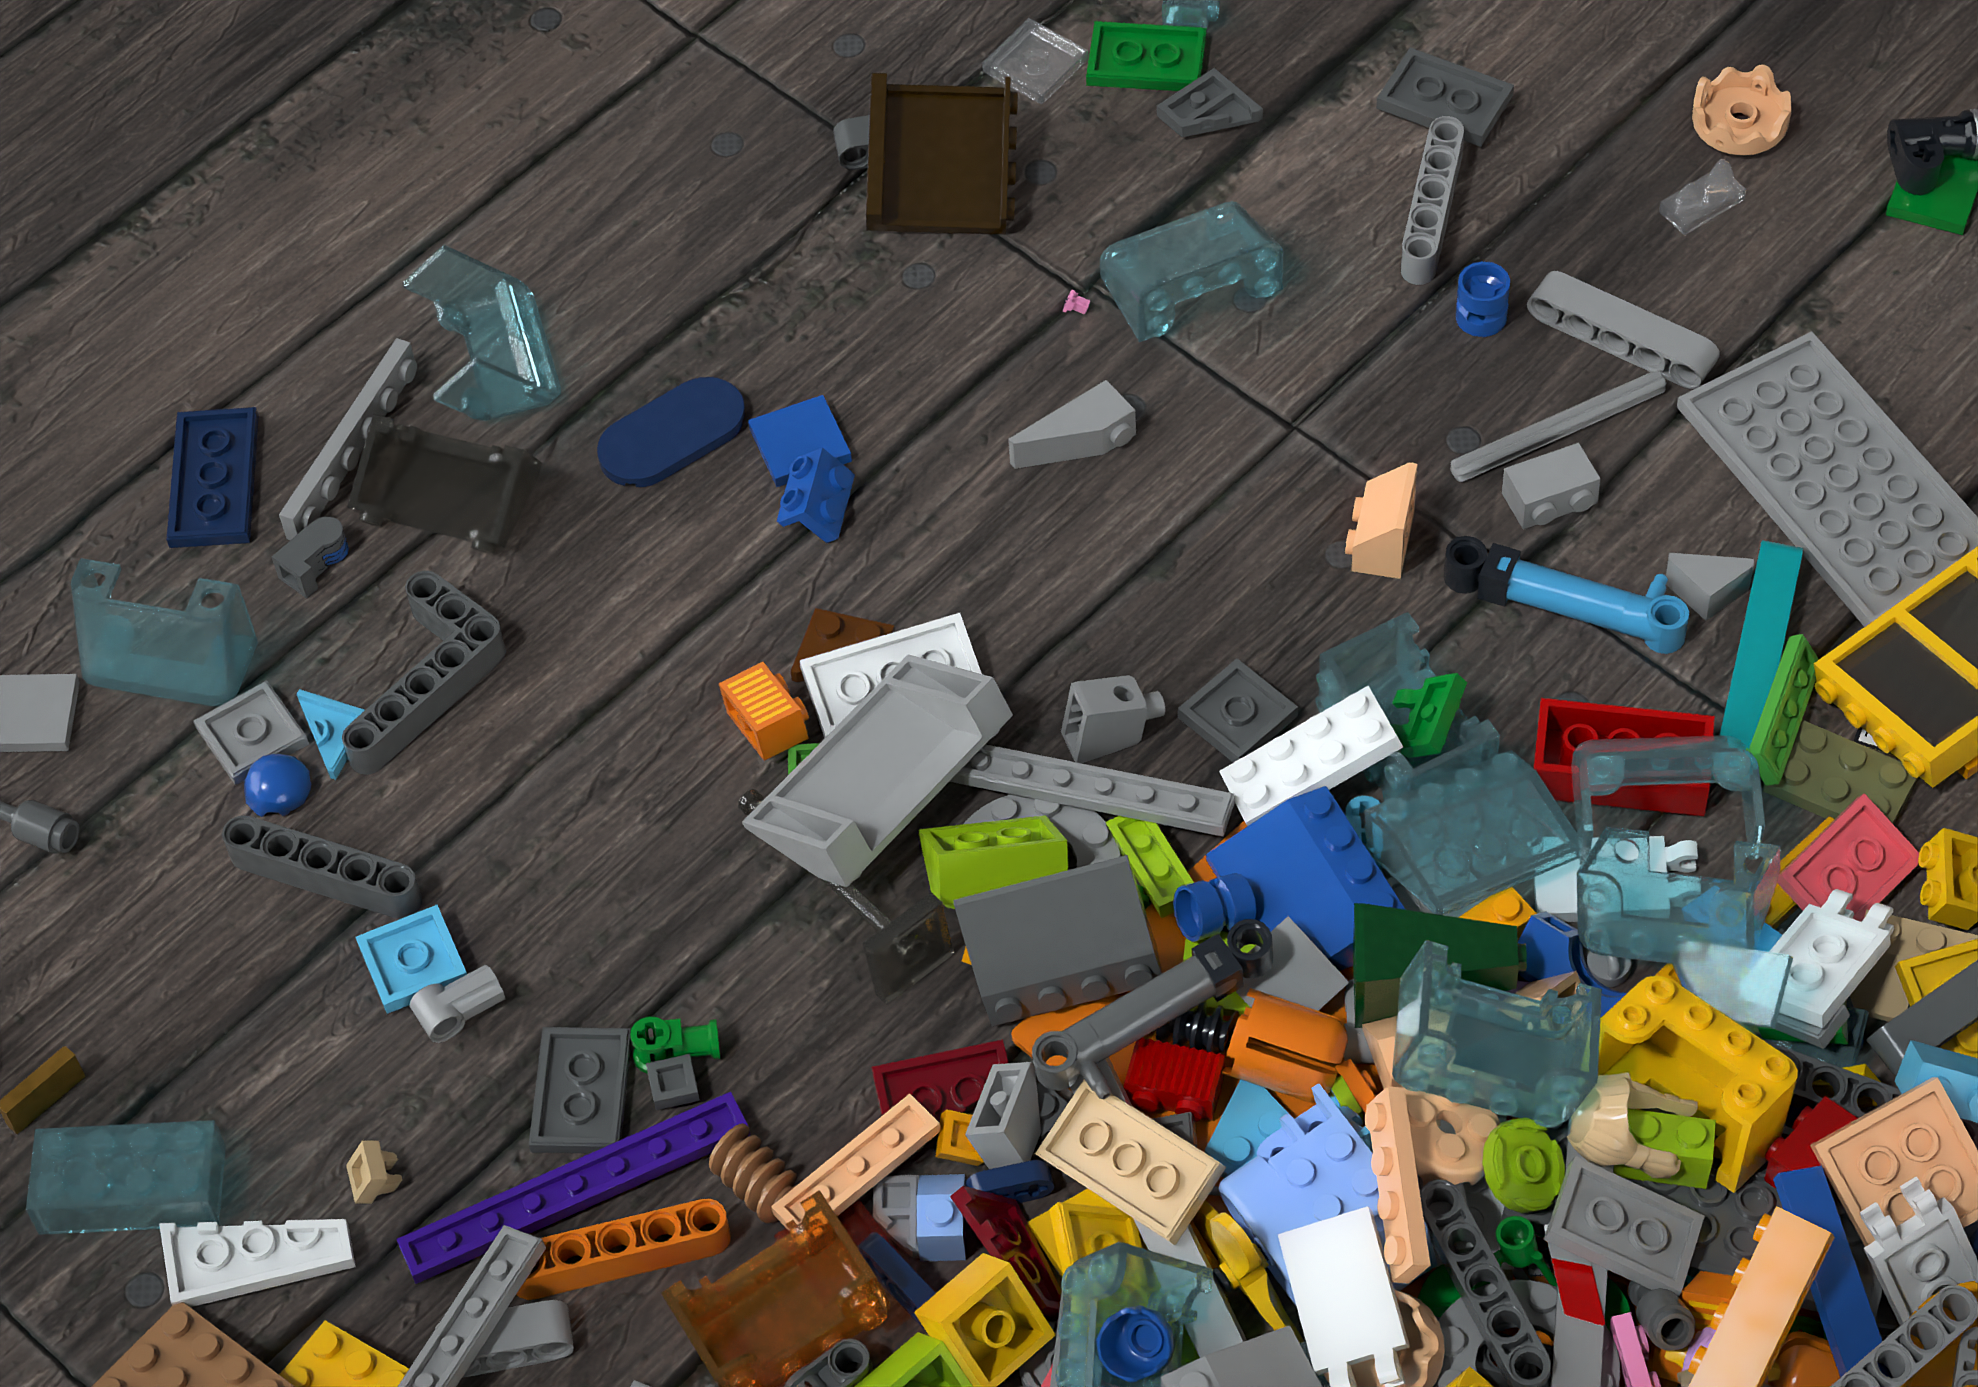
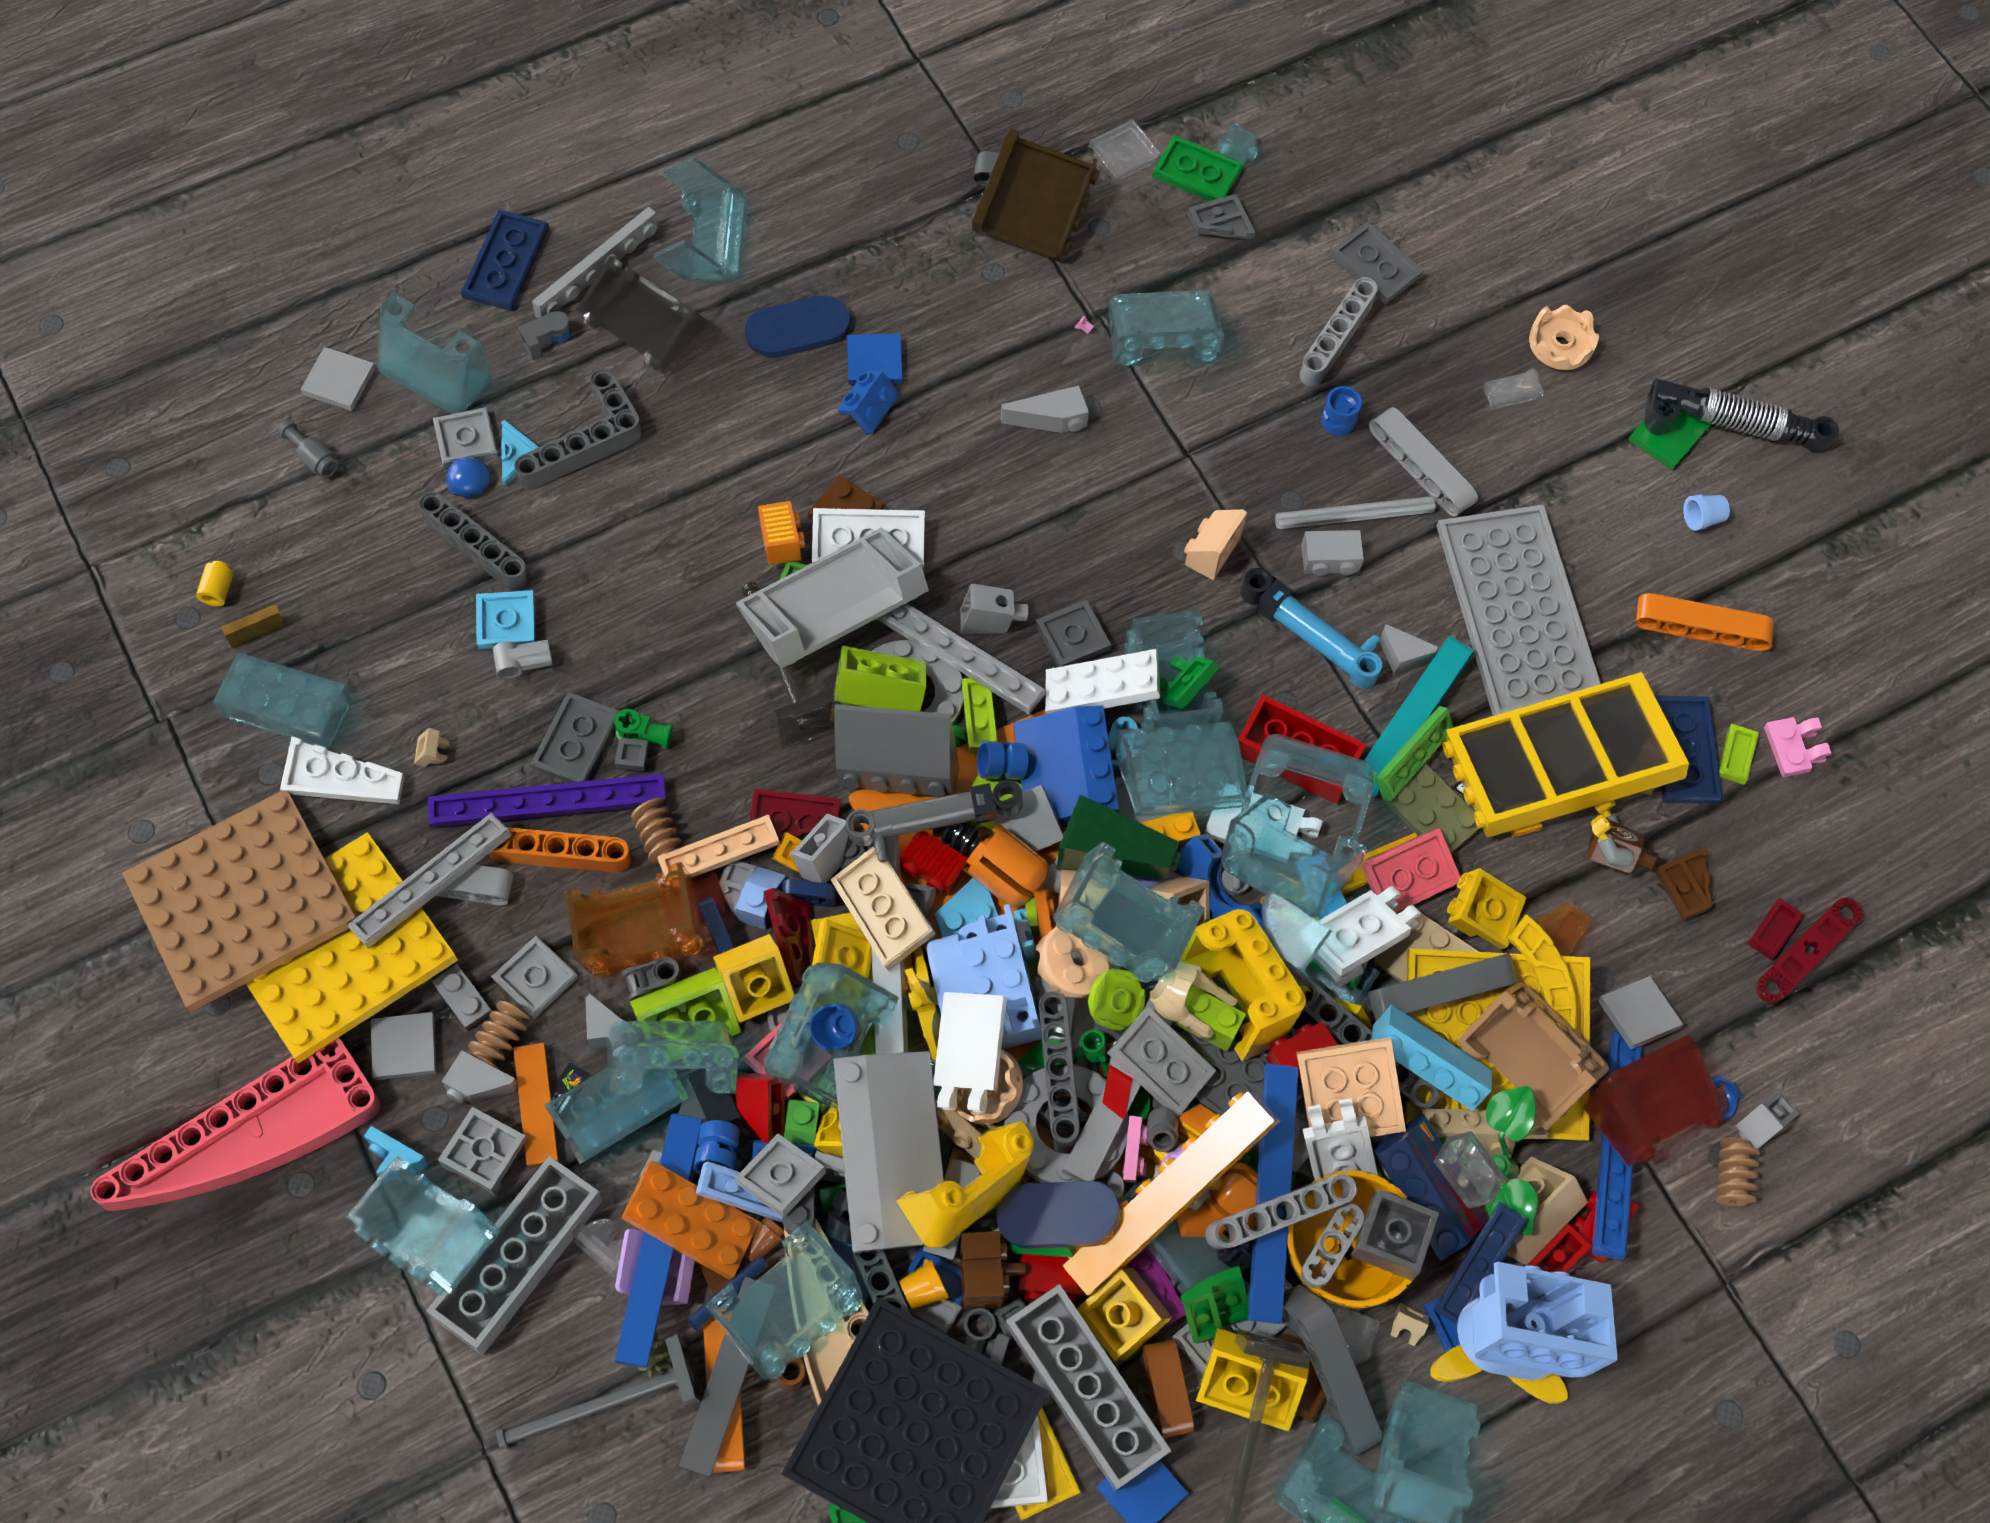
camera: 10 degrees right, 10 degrees up
(1397, 1185) = (1025, 997): light nougat plate -> none

